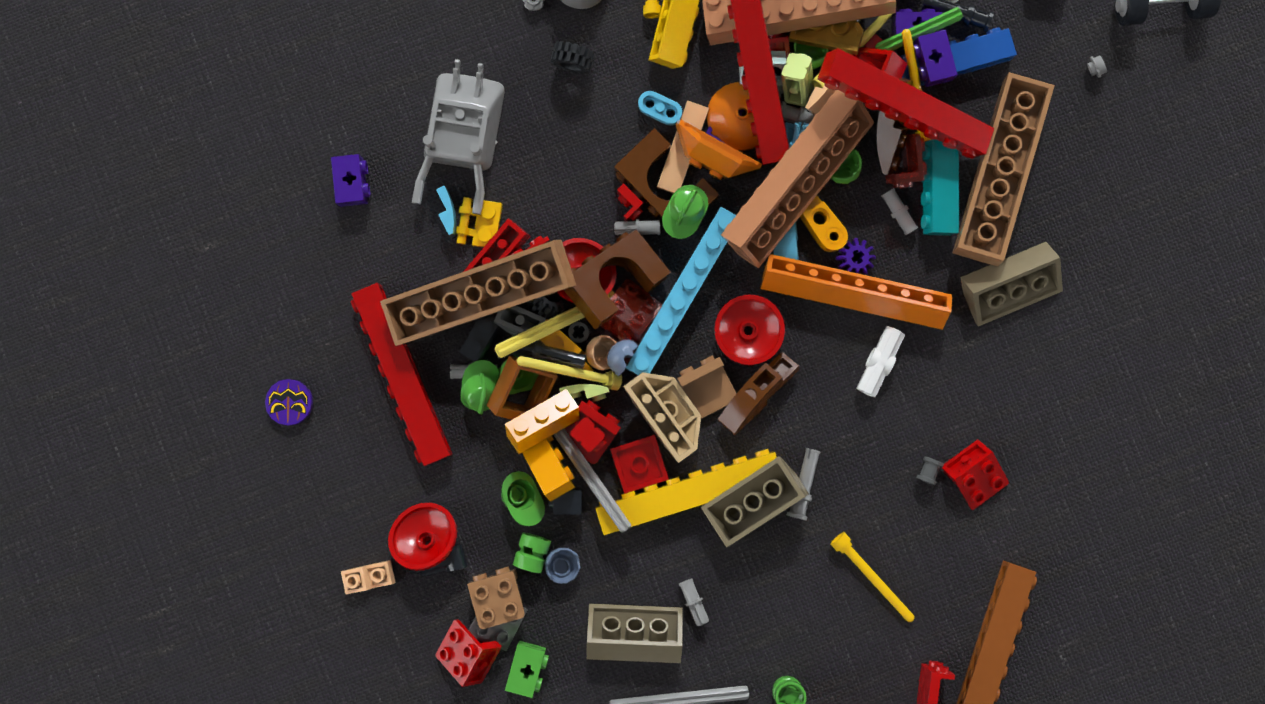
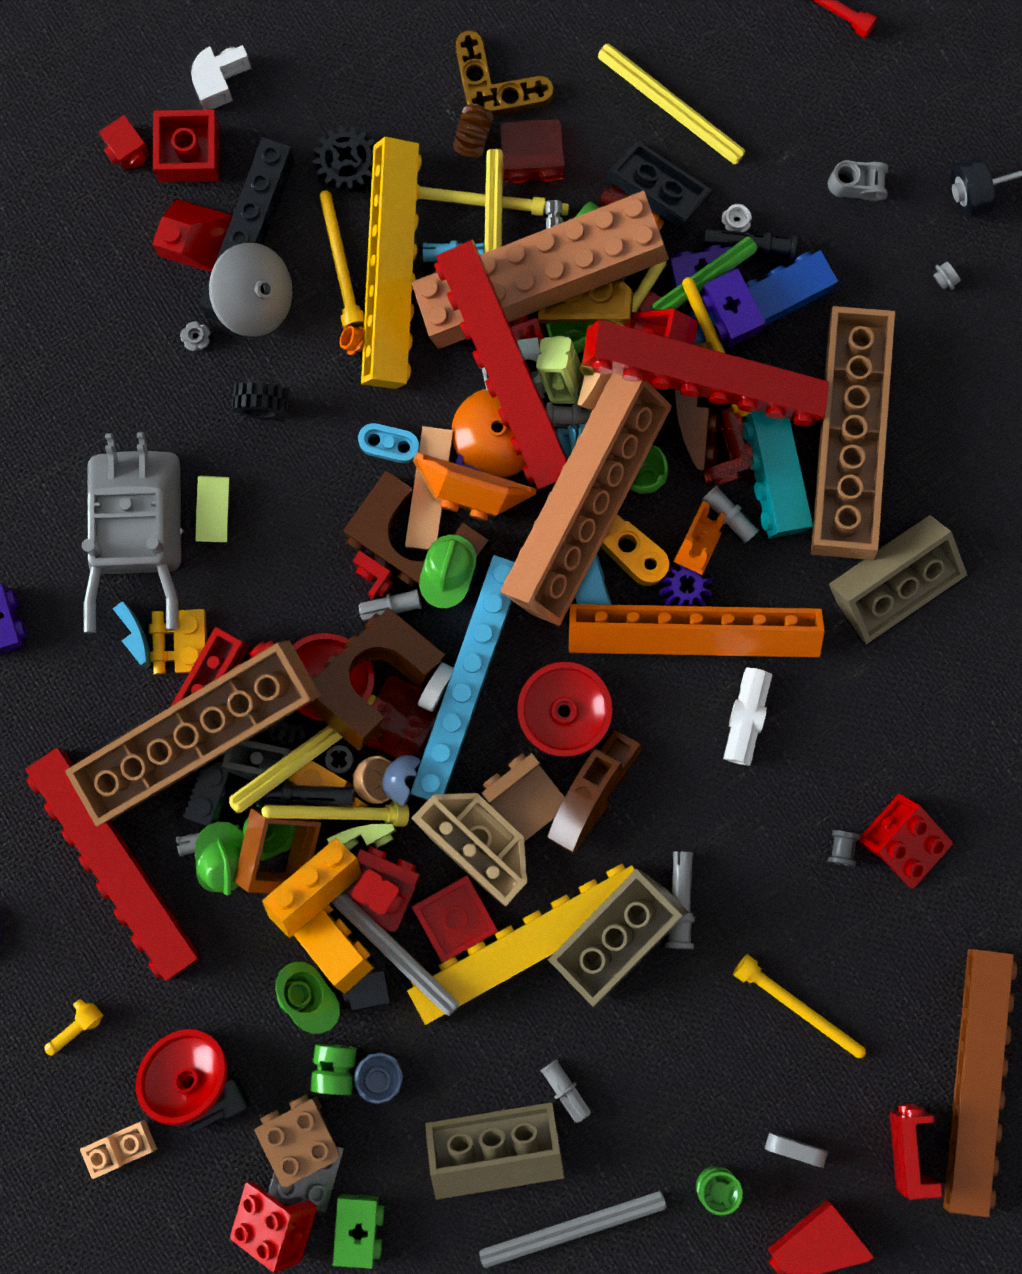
camera: 10 degrees left, 5 degrees down
(362, 480) = (86, 1018): none -> yellow piece
(522, 130) = (212, 509): none -> yellowish green slope
(648, 25) = (352, 339): none -> orange plate
(659, 294) = (436, 687): none -> white beam
(850, 677) = (796, 1150): none -> light grey beam
(873, 226) = (700, 540): none -> orange hinge

